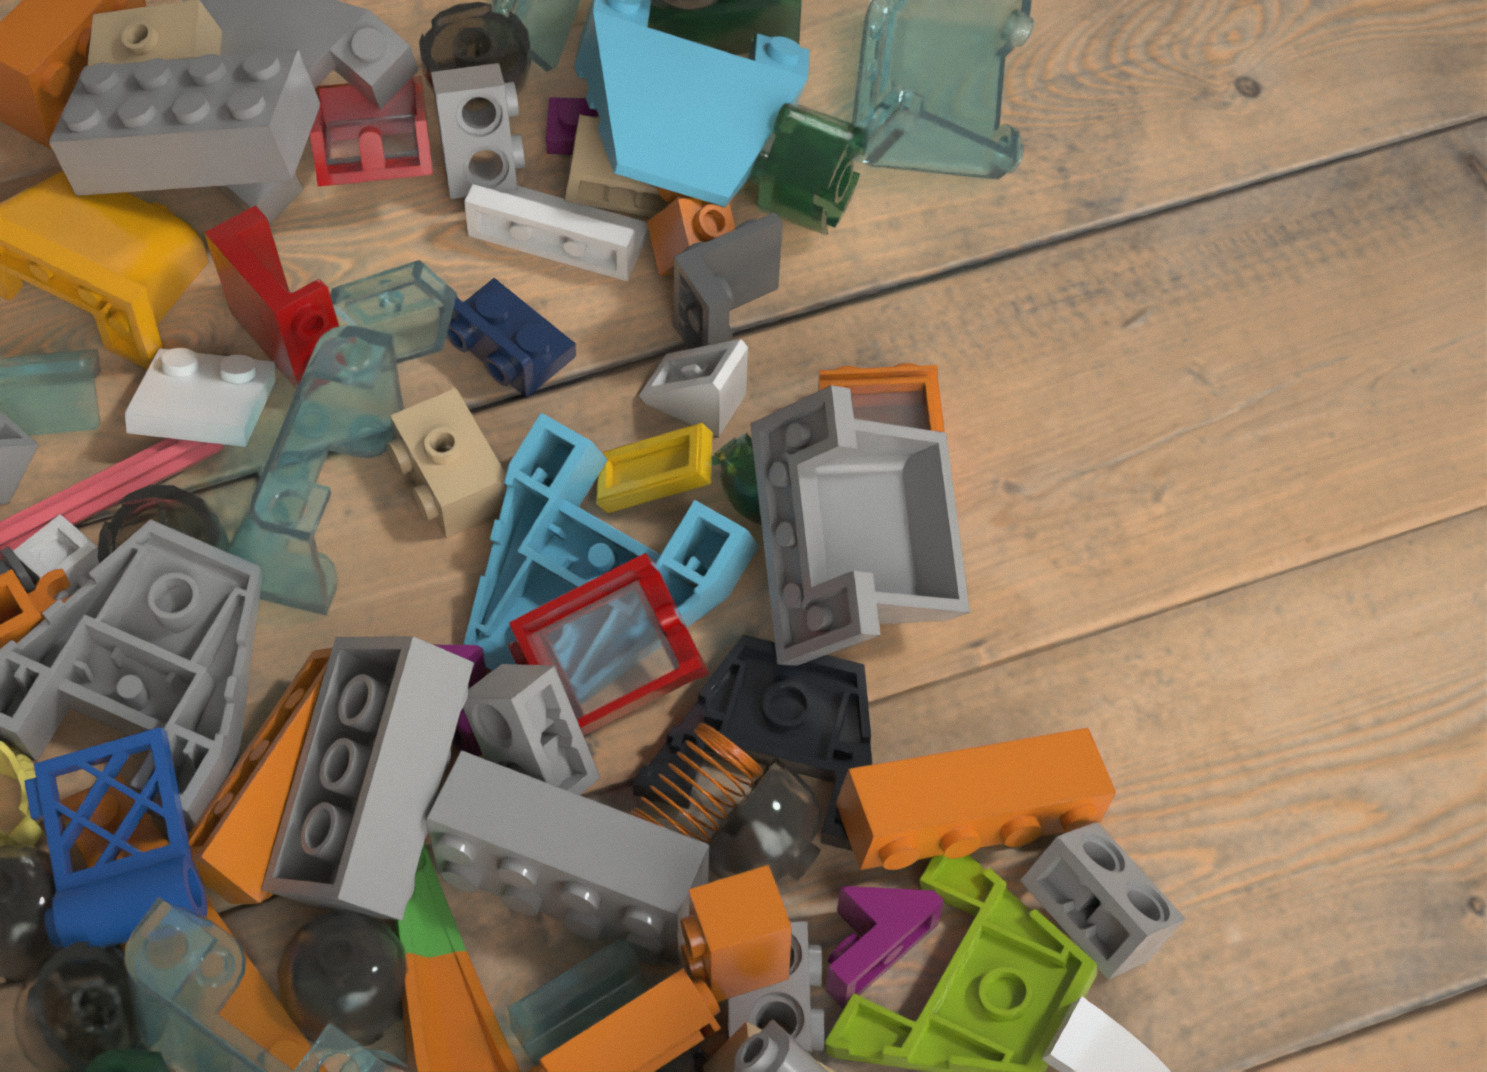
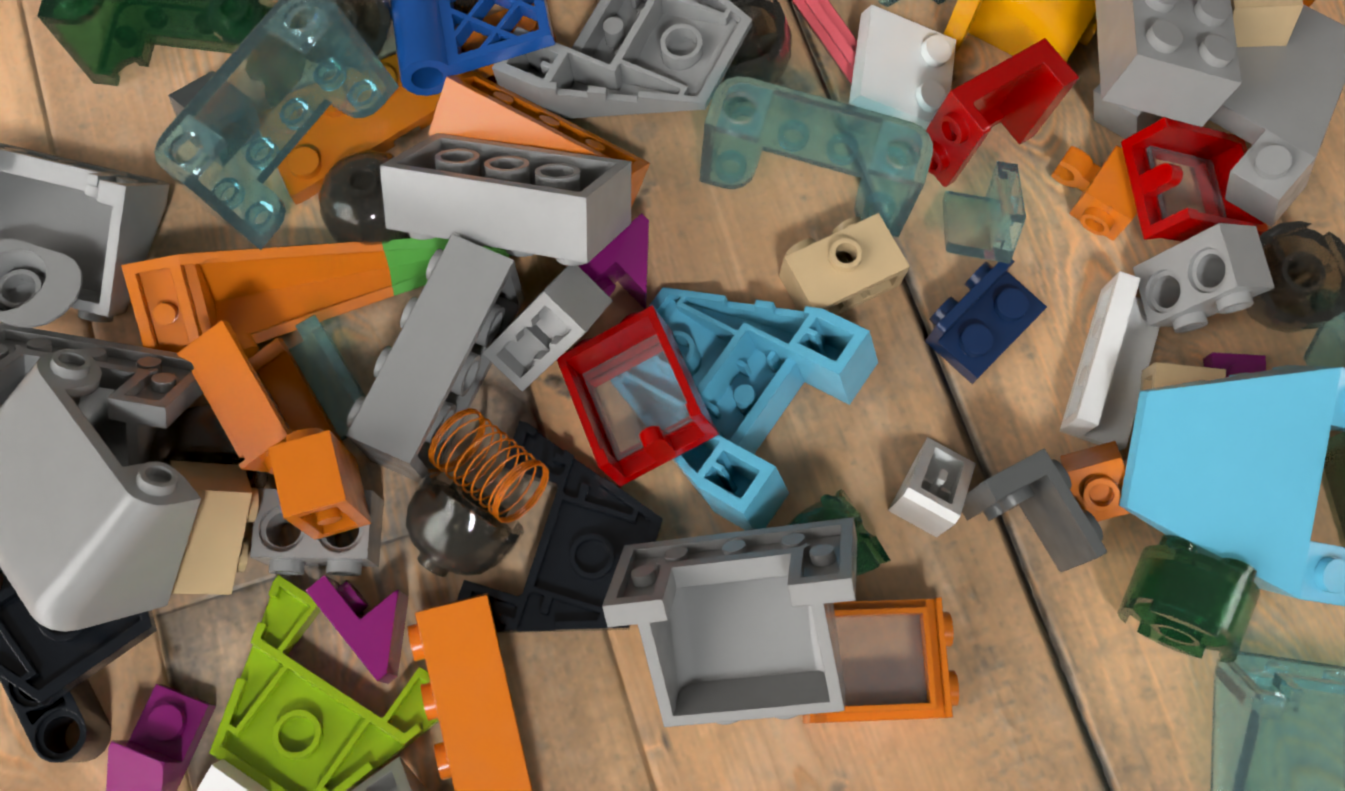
camera: 90 degrees right, 15 degrees up
(361, 216) = (1107, 193): none -> orange brick
(655, 468) = (836, 445): yellow tile -> none

